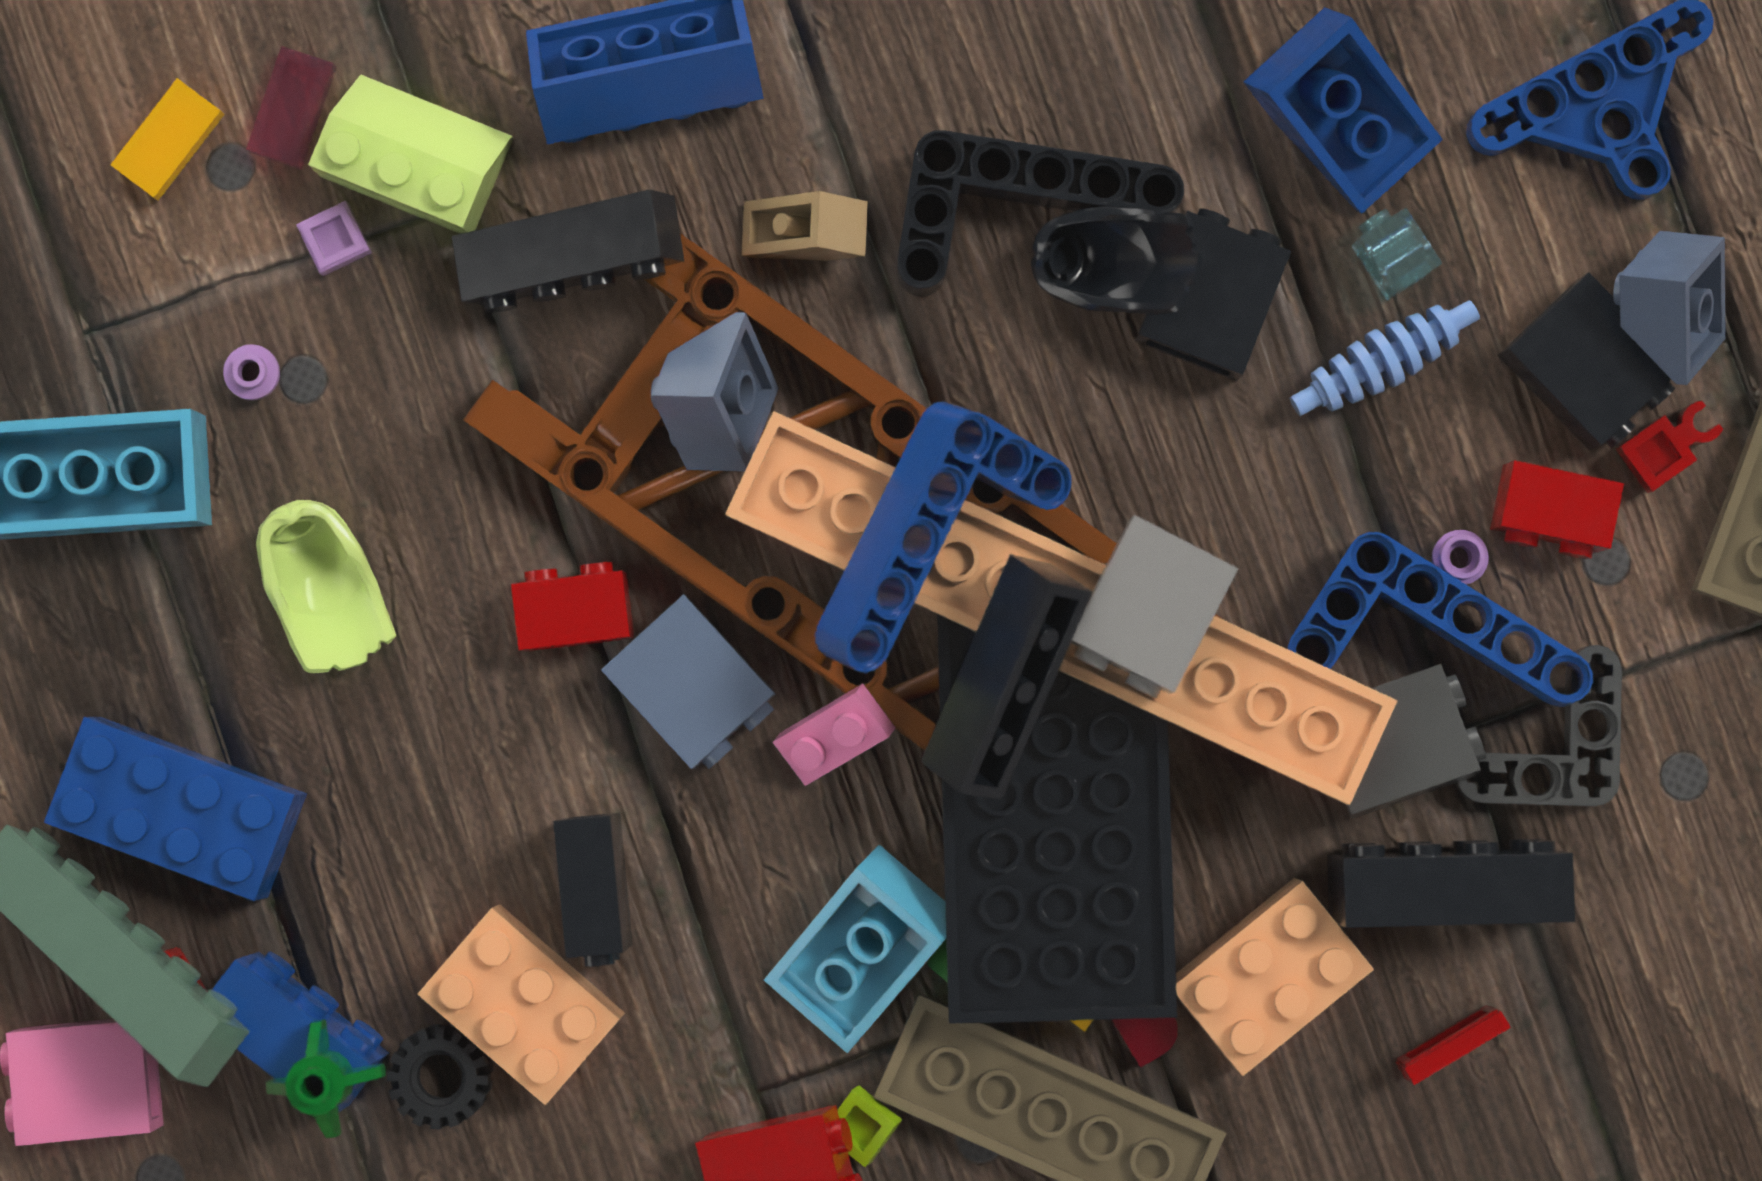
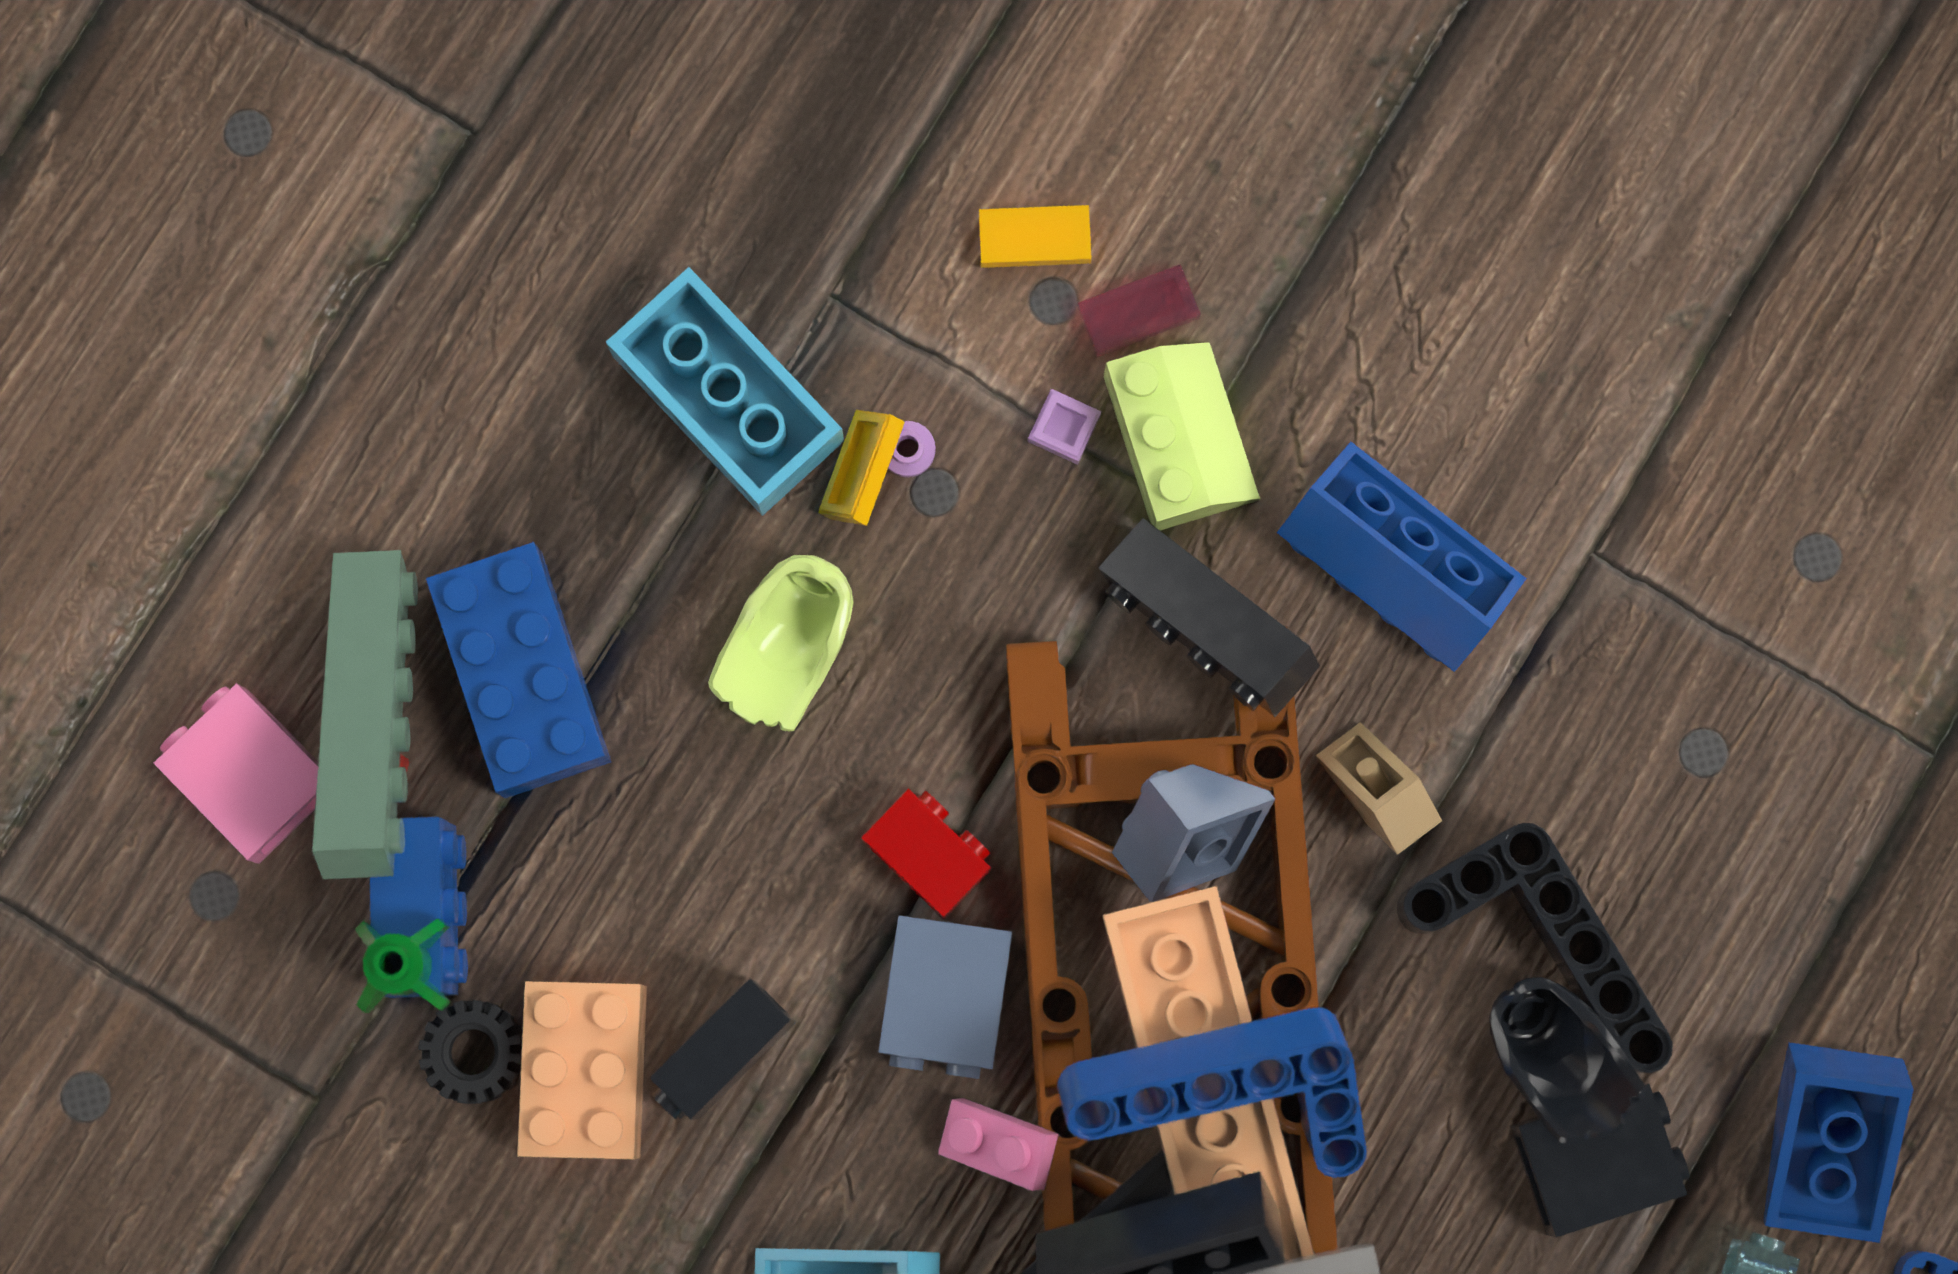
camera: 45 degrees right, 5 degrees down
(236, 419) = (861, 467): none -> yellow tile

